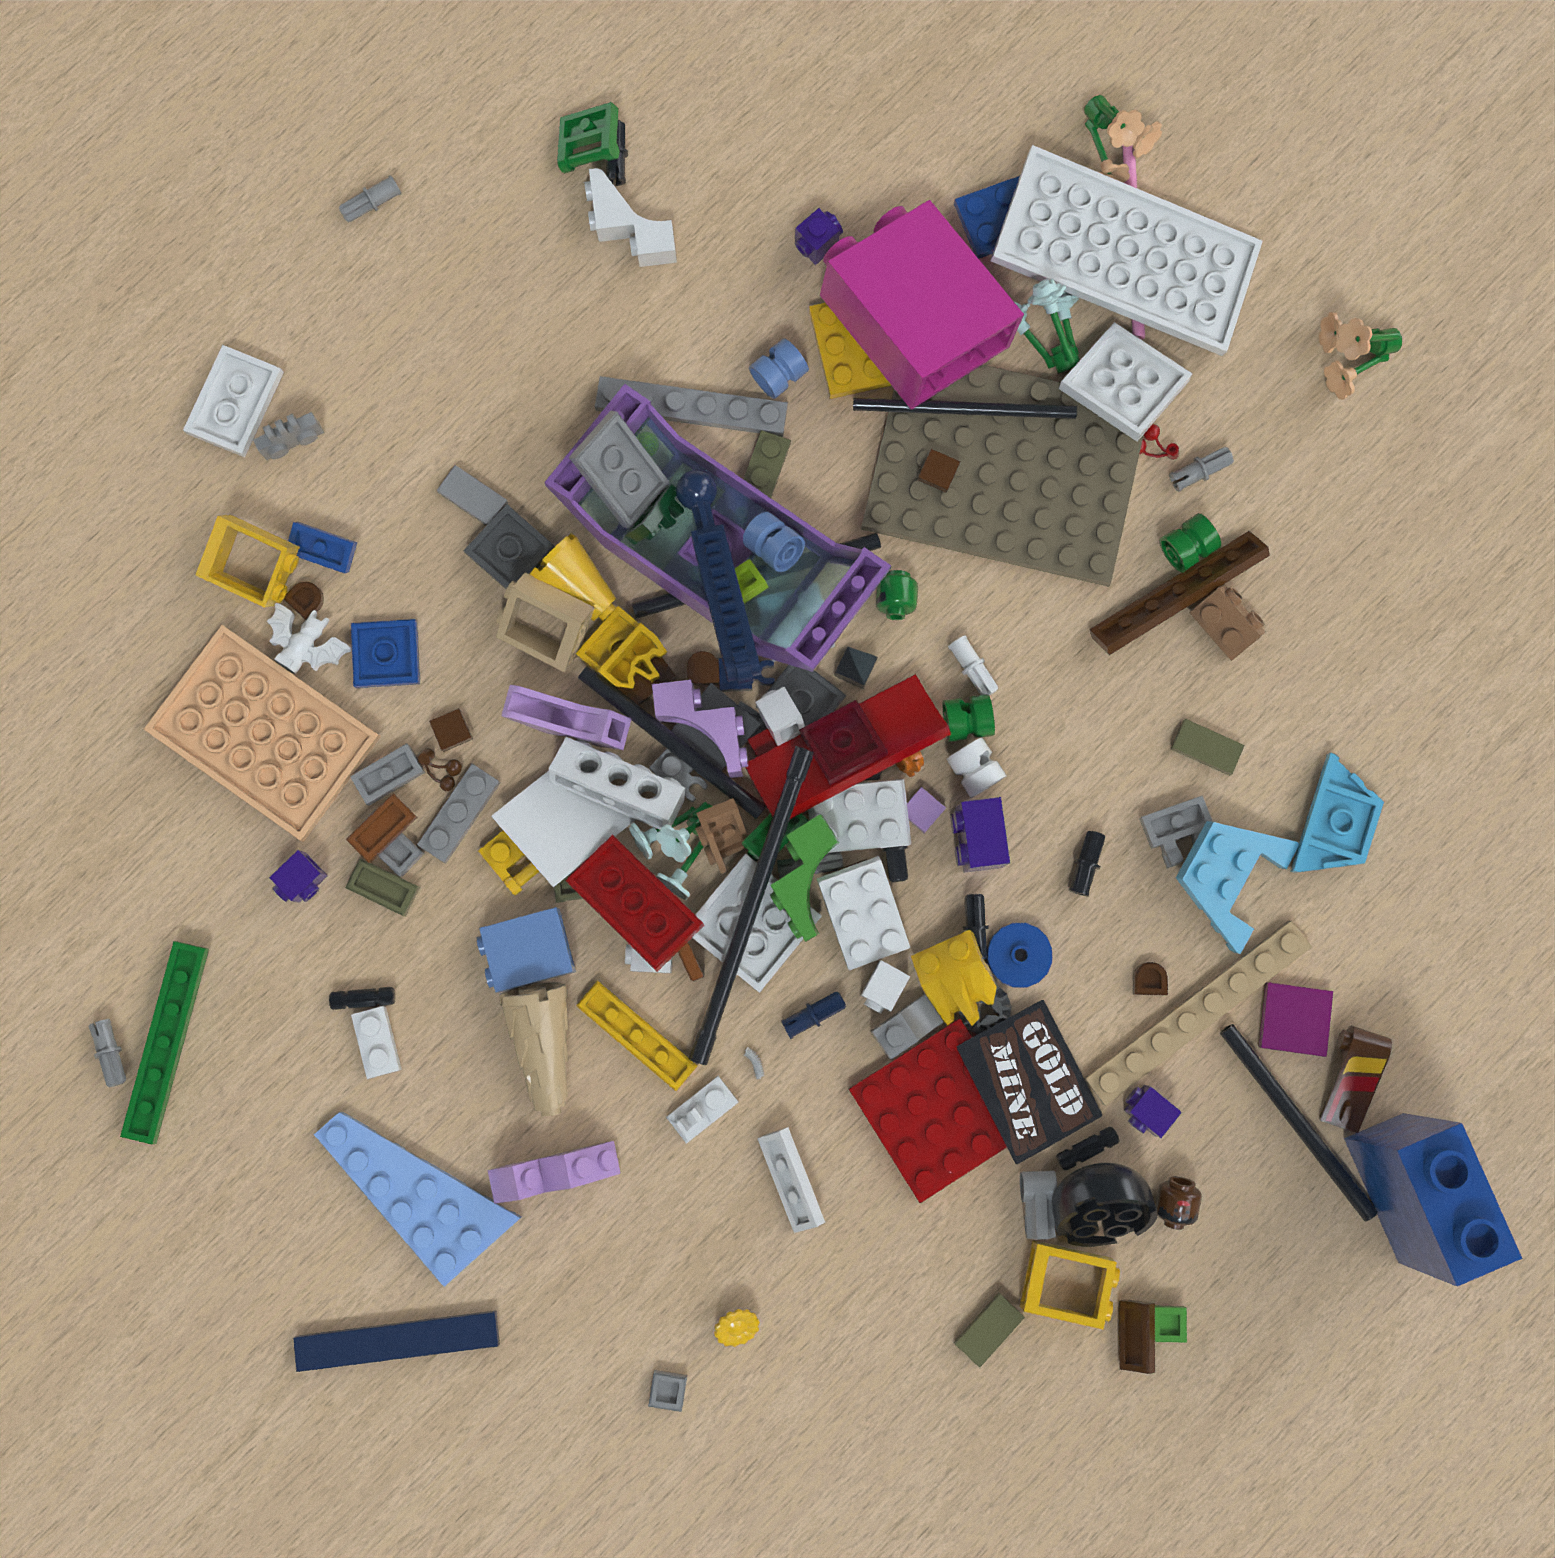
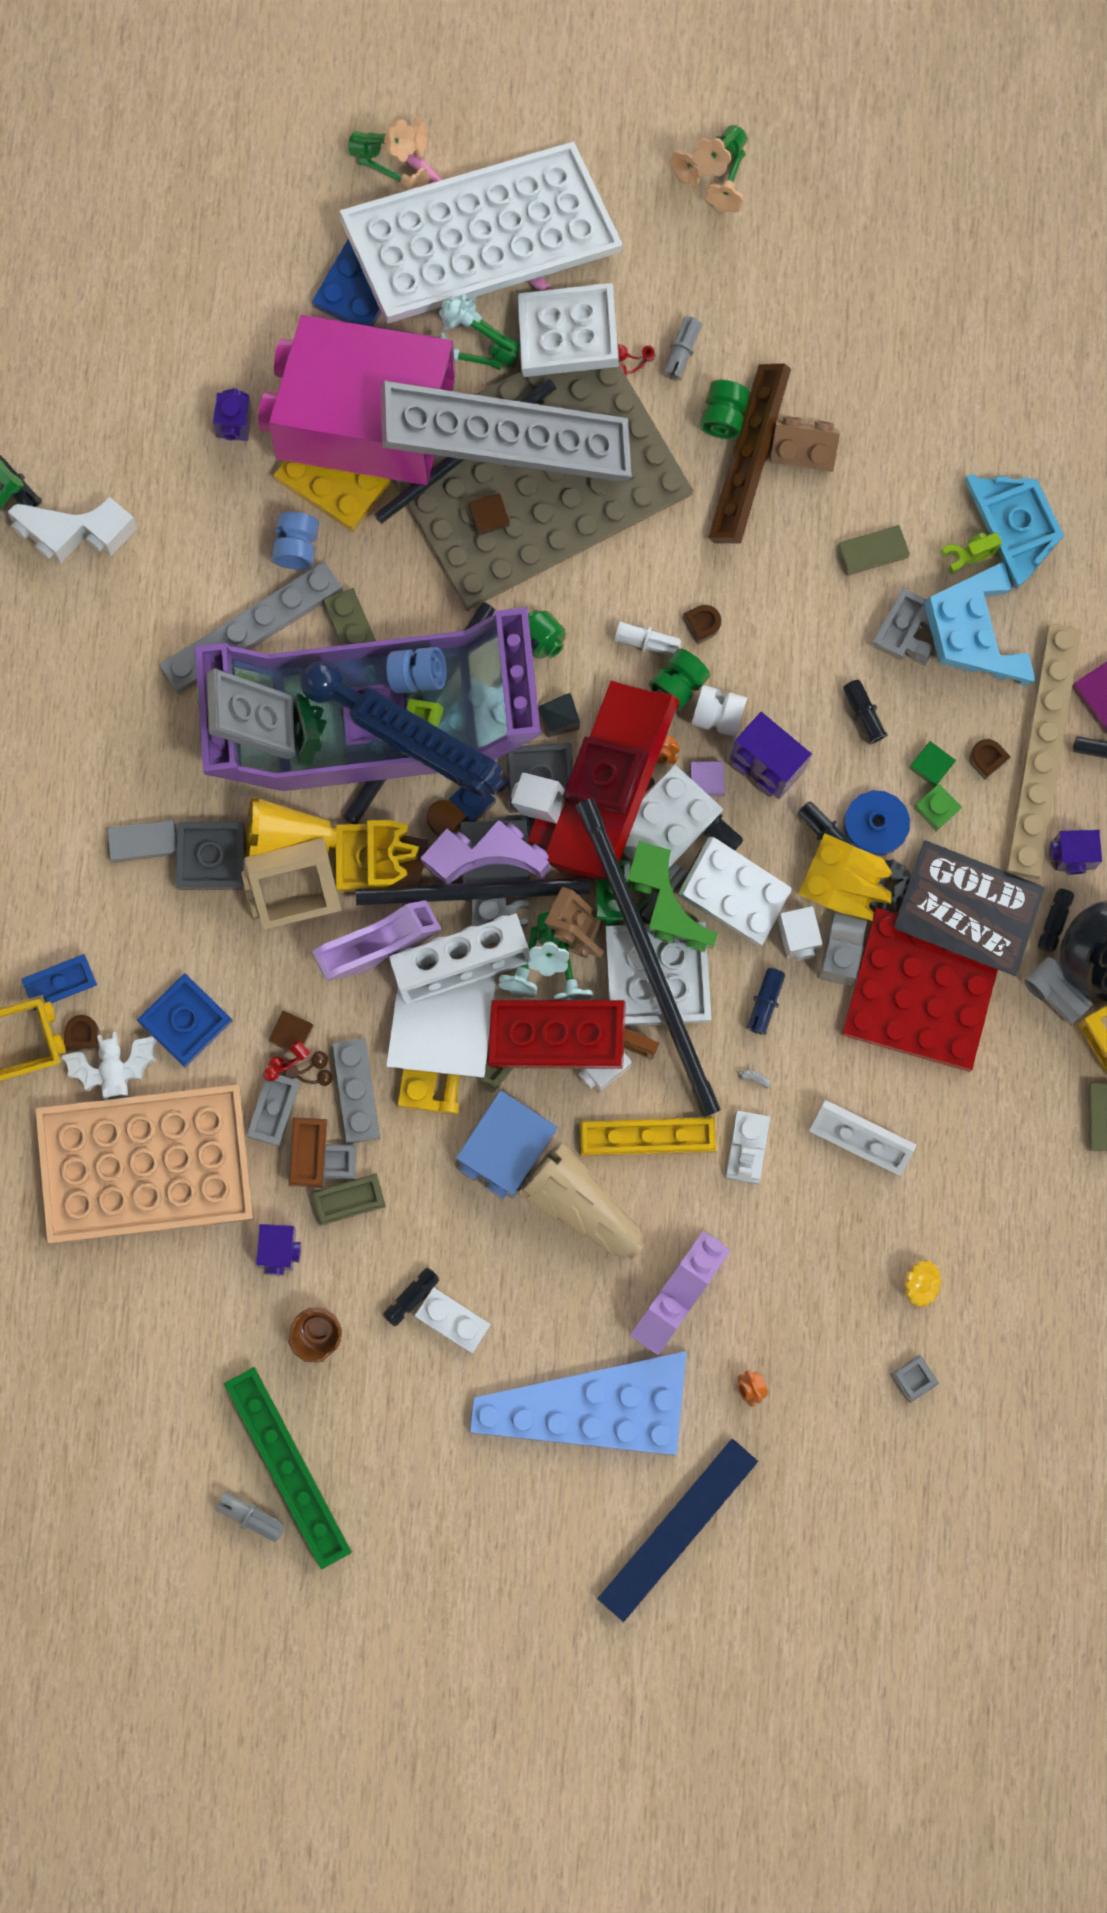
camera: 45 degrees left, 5 degrees down
(266, 964) = (315, 1335): none -> dark orange hair
(420, 743) = (276, 1063): none -> red piece
(541, 1289) = (752, 1387): none -> orange plate
(999, 417) = (504, 432): none -> light grey plate
(1028, 690) = (703, 622): none -> reddish brown tile
(1076, 983) = (937, 807): none -> bright green plate
(1102, 948) = (932, 764): none -> green tile
(1288, 816) = (978, 549): none -> lime plate

